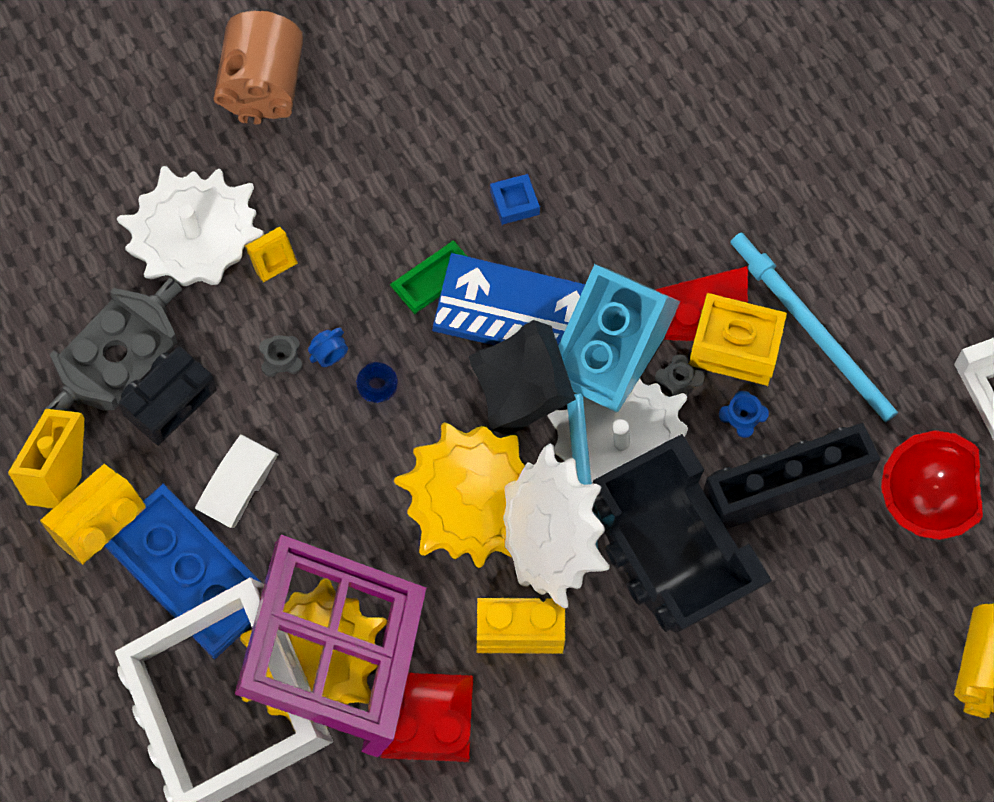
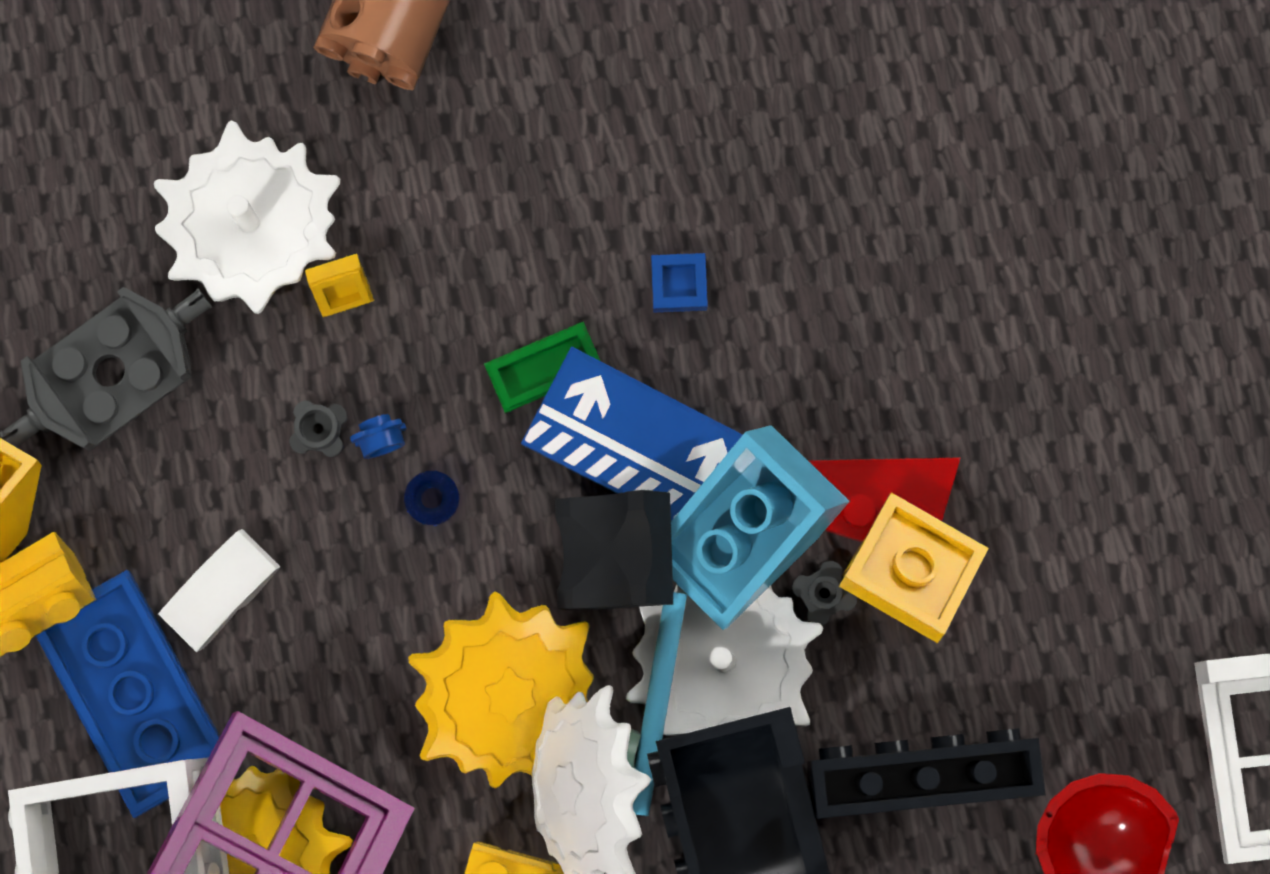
camera: 20 degrees right, 15 degrees up
(167, 394) = (157, 450): black brick -> none
(744, 402) = (909, 664): blue plate -> none
(763, 268) = (980, 464): medium azure bar -> none

